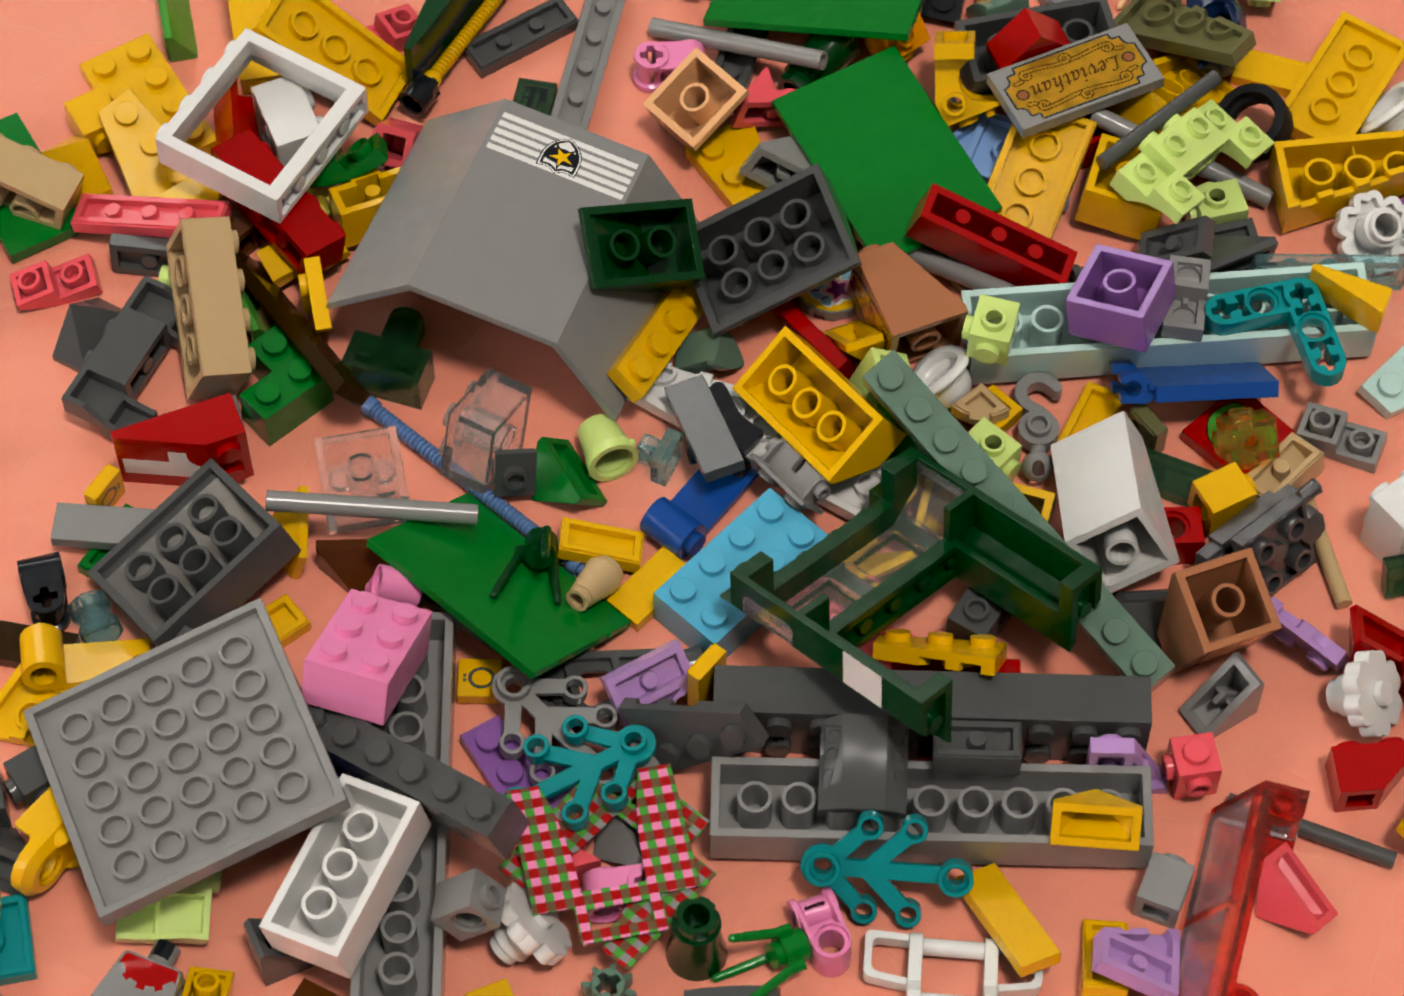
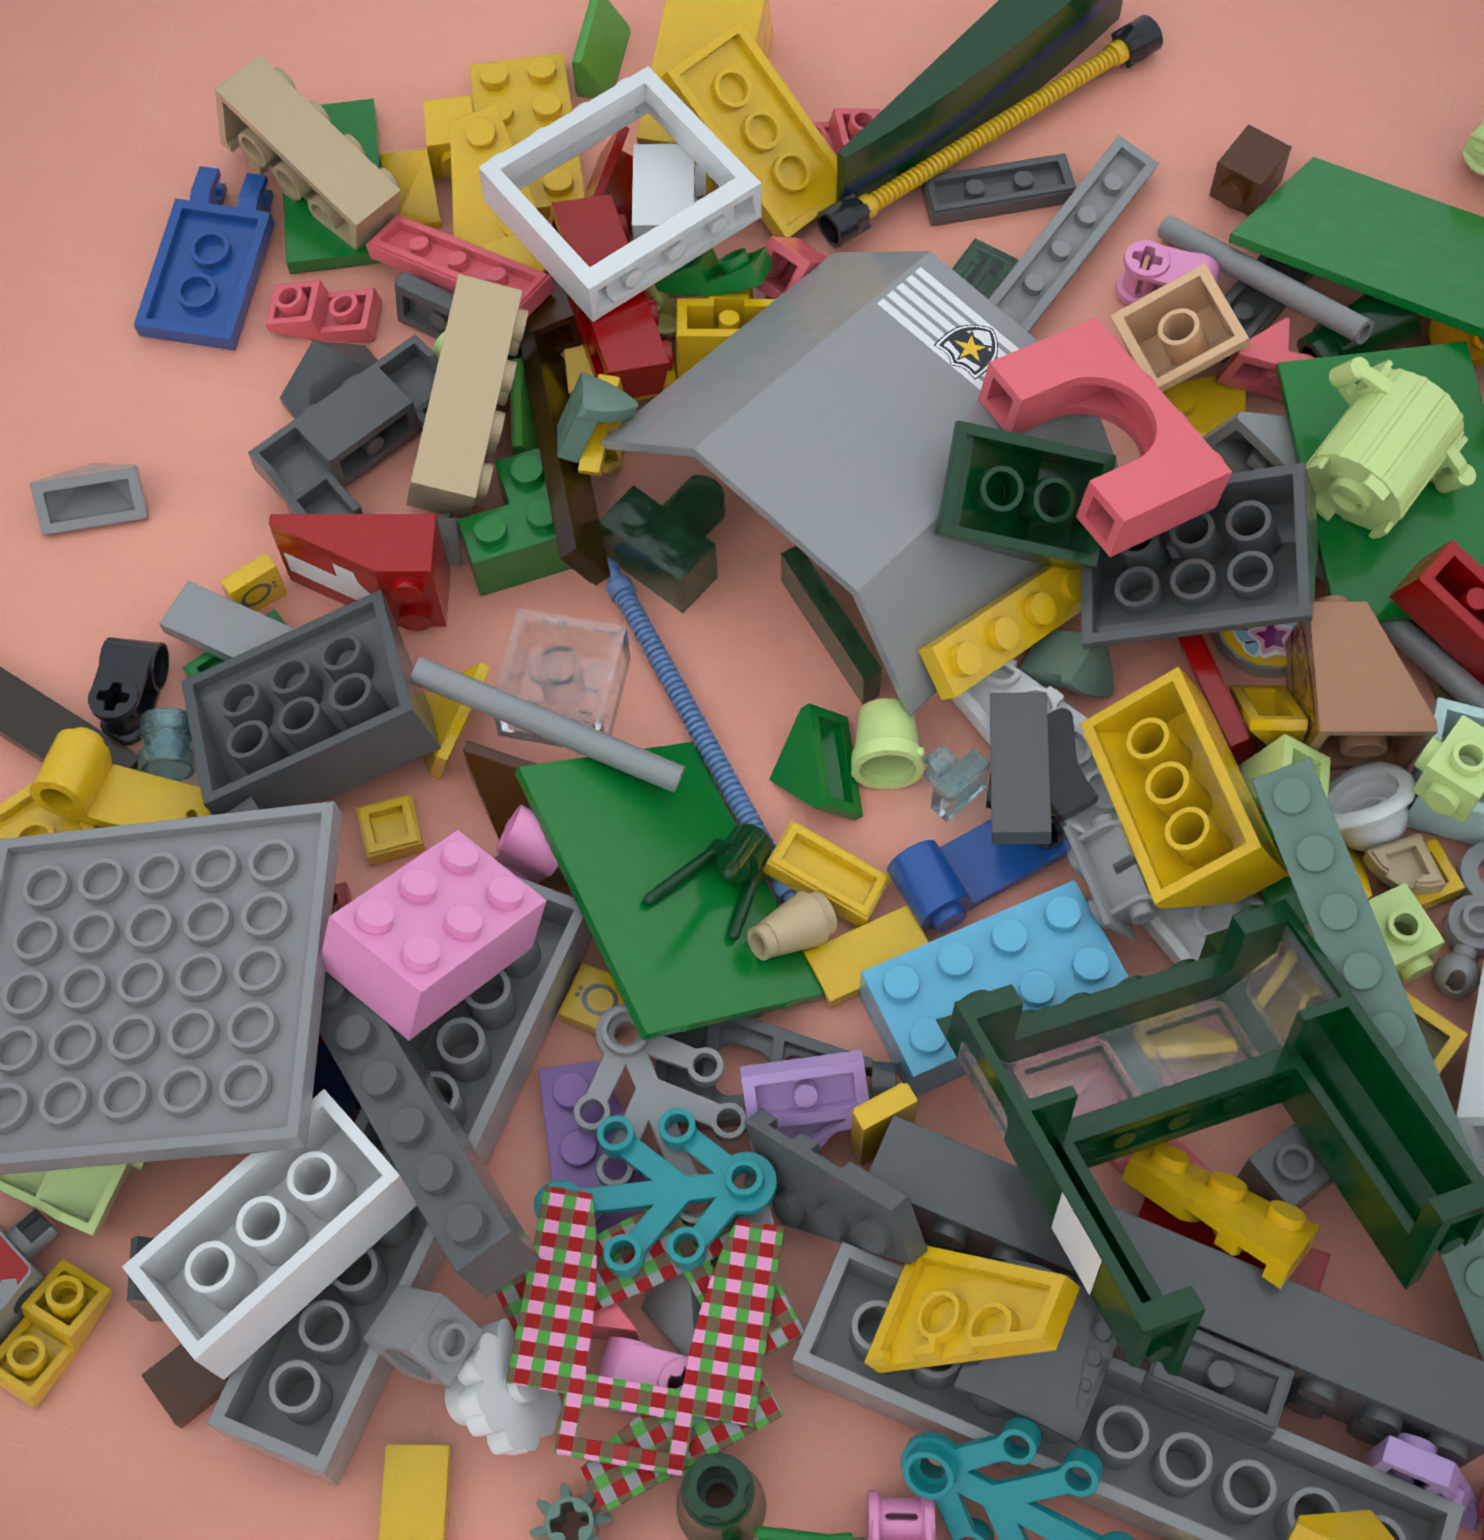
camera: 25 degrees right, 5 degrees up
(305, 289) = (588, 404): none -> sand green tile
(483, 421) = (736, 670): clear brick -> none
(515, 472) = (753, 739): dark grey bracket -> none
(546, 389) = (831, 624): none -> clear green tile
(653, 149) = (1094, 376): none -> coral arch
(809, 755) = (969, 1310): none -> yellow wing
(867, 135) = (1387, 446): none -> yellowish green container

